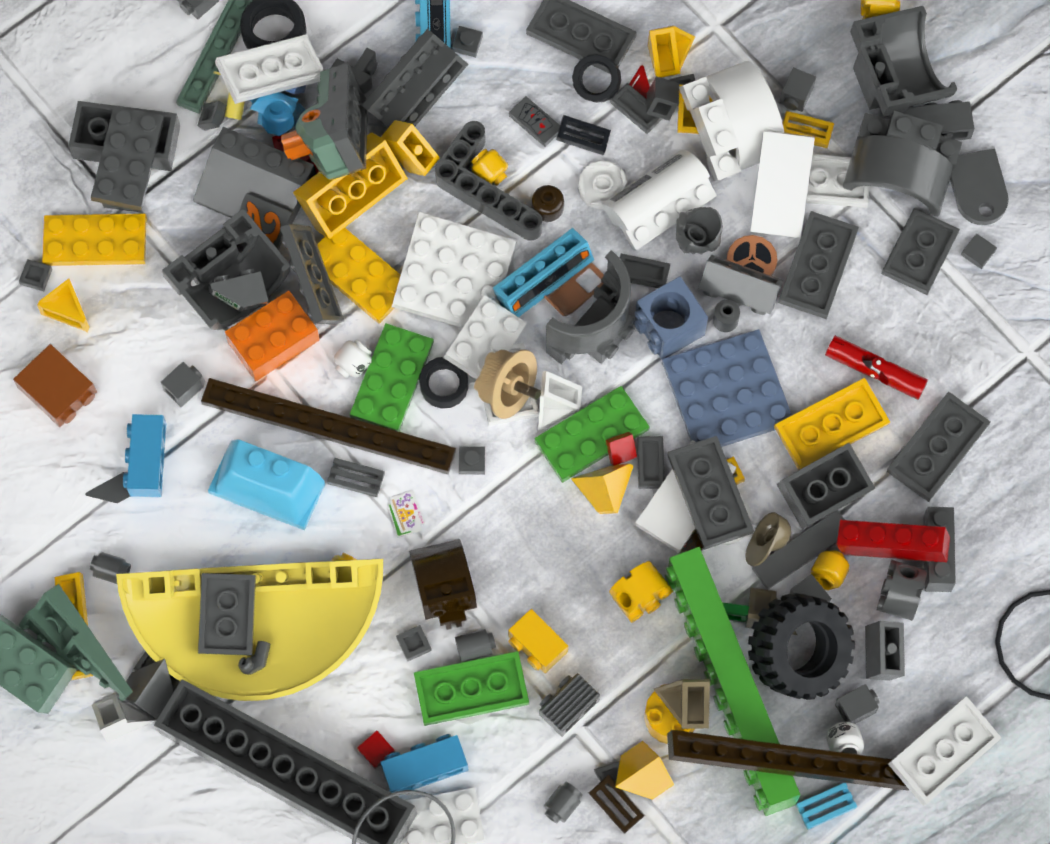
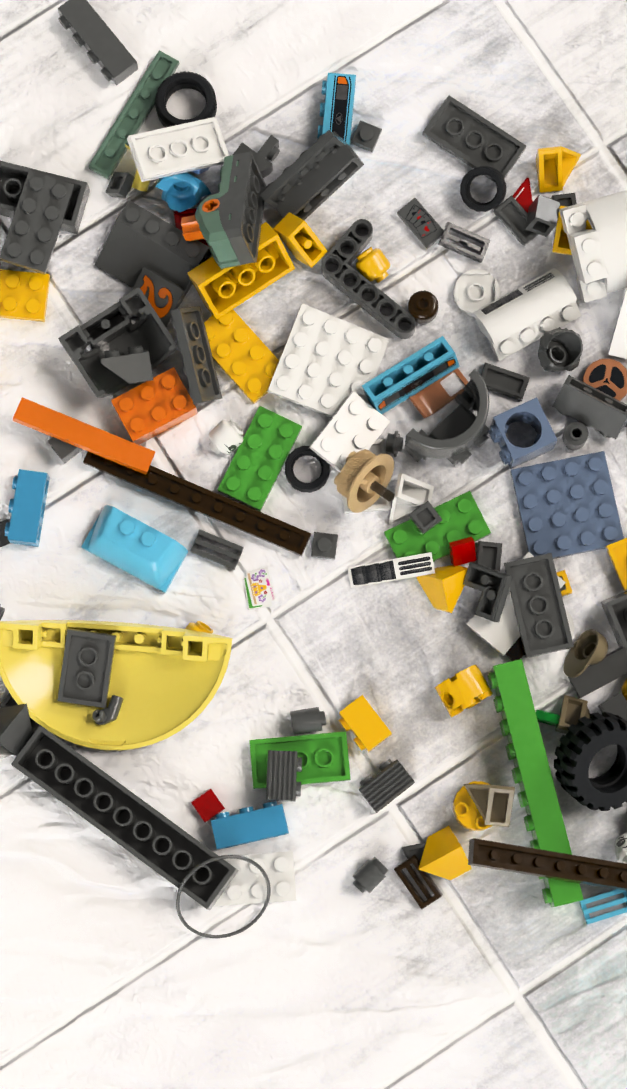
camera: 10 degrees right, 10 degrees up
(199, 371) = (83, 436): none -> orange tile
(413, 643) = (252, 712): dark grey plate -> none
(444, 582) = (285, 658): dark brown piece -> none
(454, 704) = (282, 776): none -> dark grey brick
(534, 344) = (394, 443): none -> dark grey plate
(546, 476) = (391, 570): none -> sticker
(577, 417) = (425, 517): none -> dark grey tile
(660, 480) = (493, 587): none -> dark grey brick

